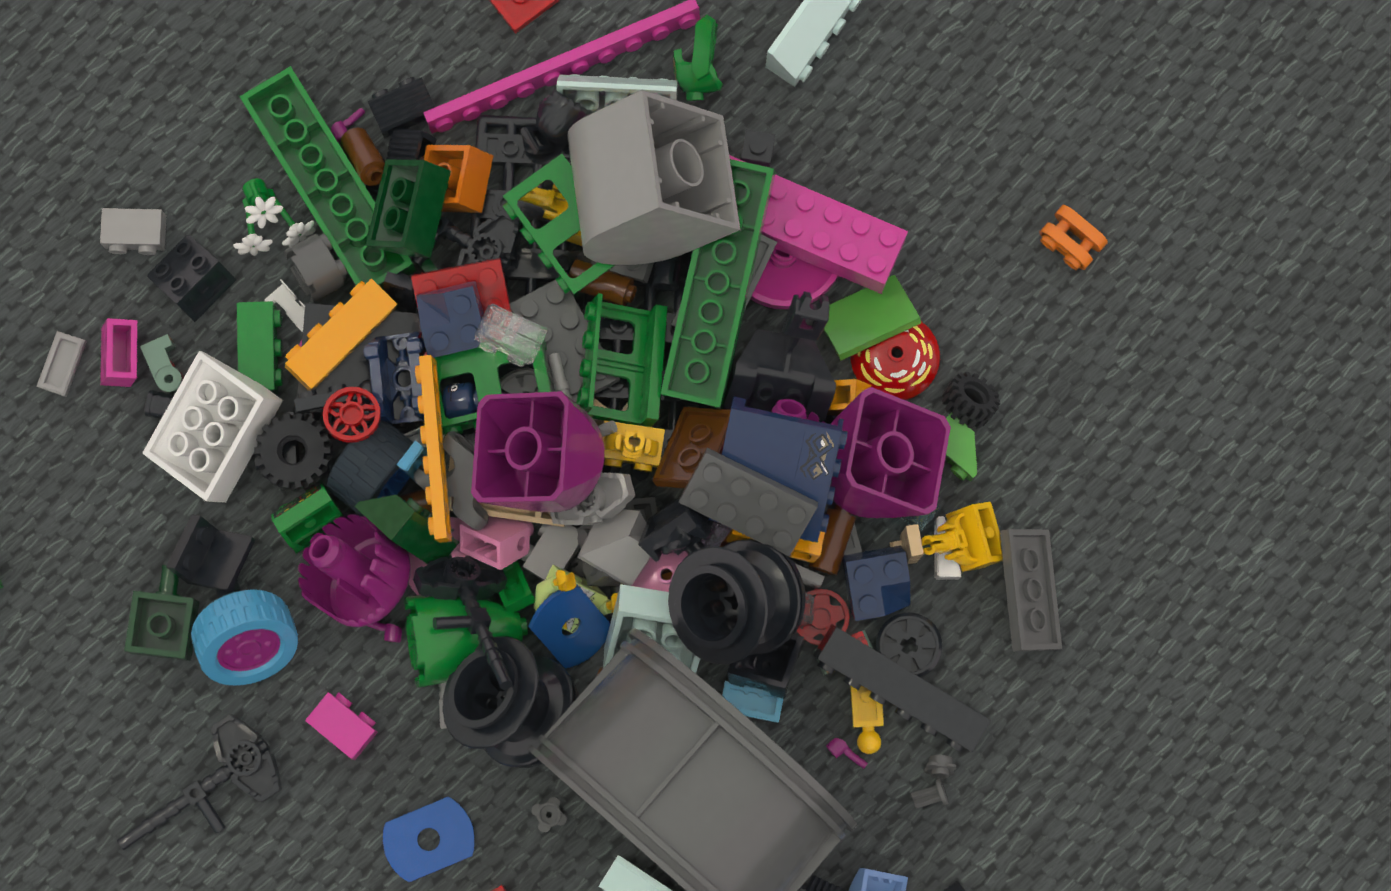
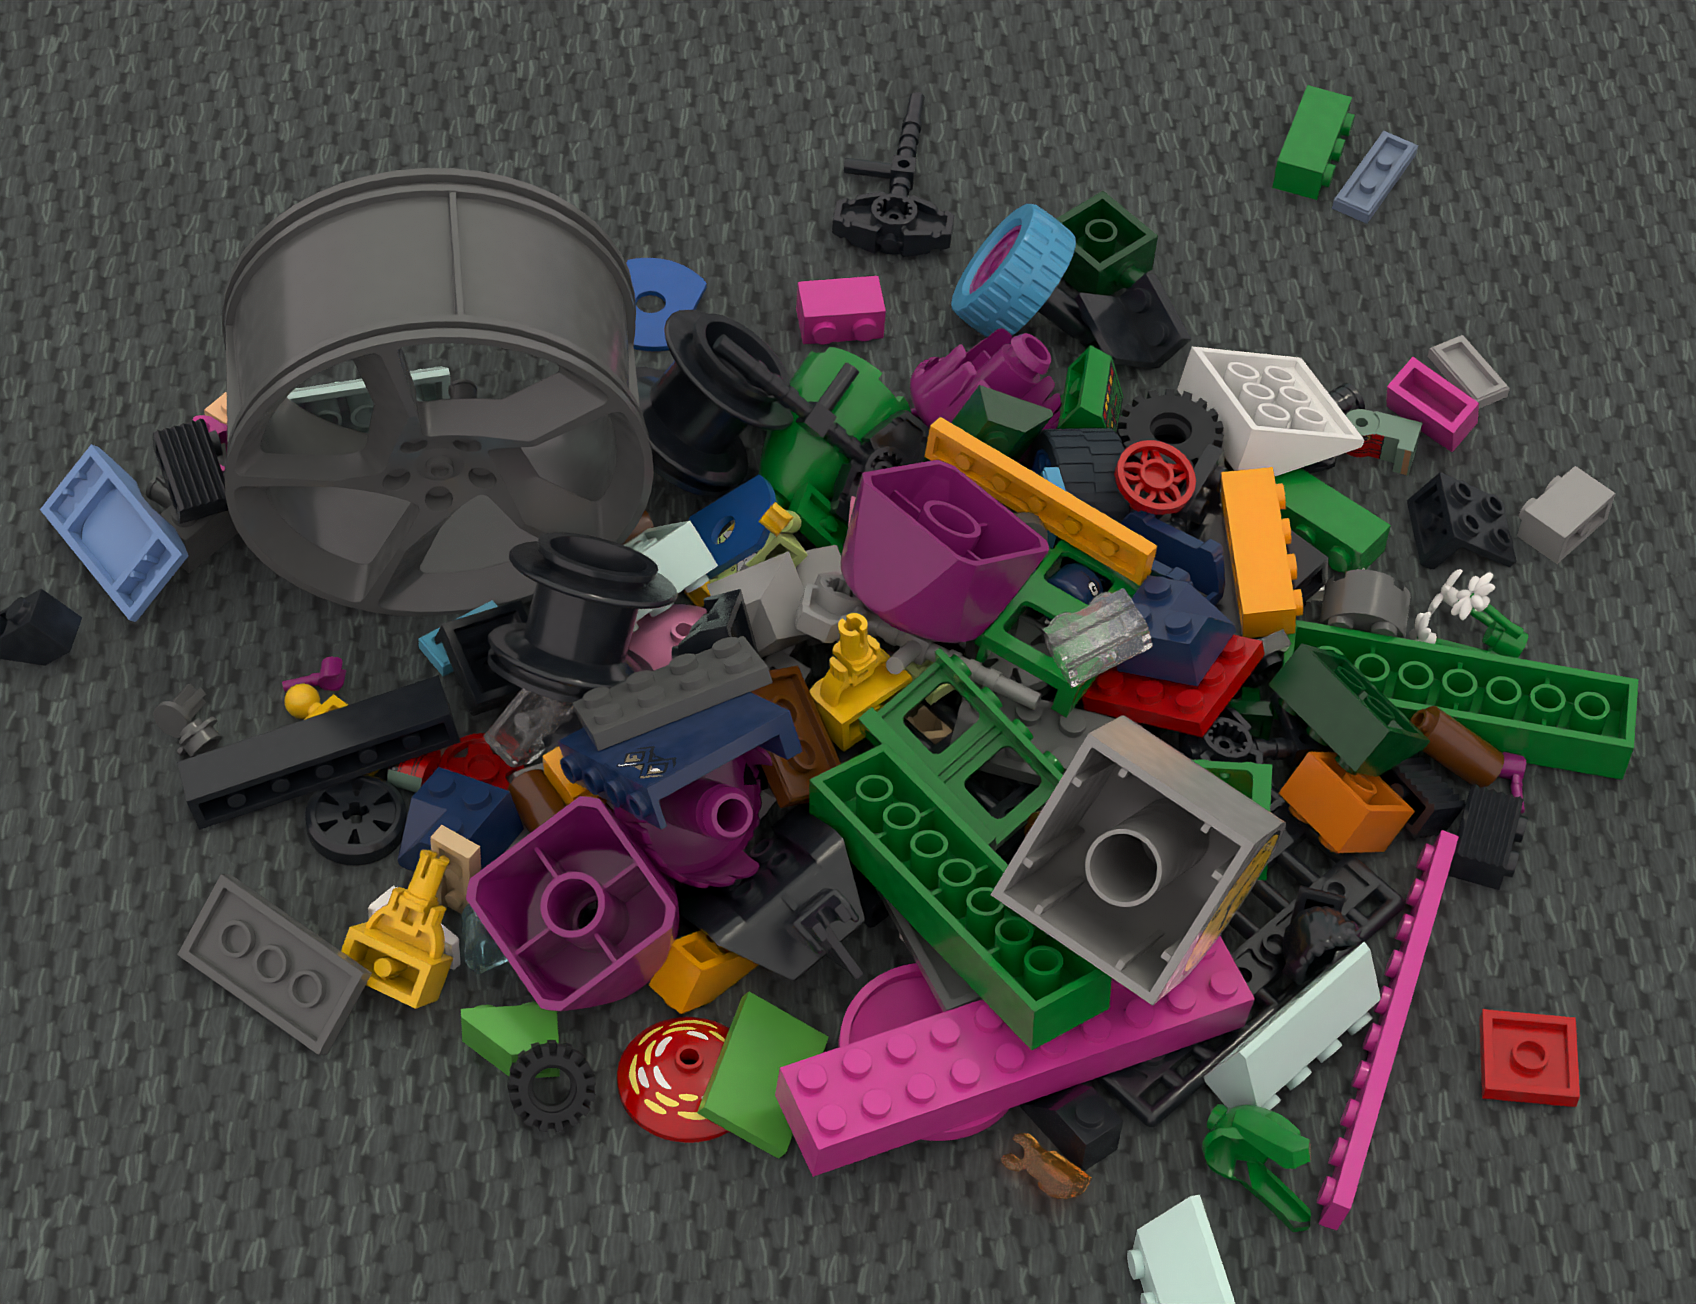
camera: 130 degrees right, 30 degrees down
(790, 148) = (1055, 1173): none -> clear orange plate

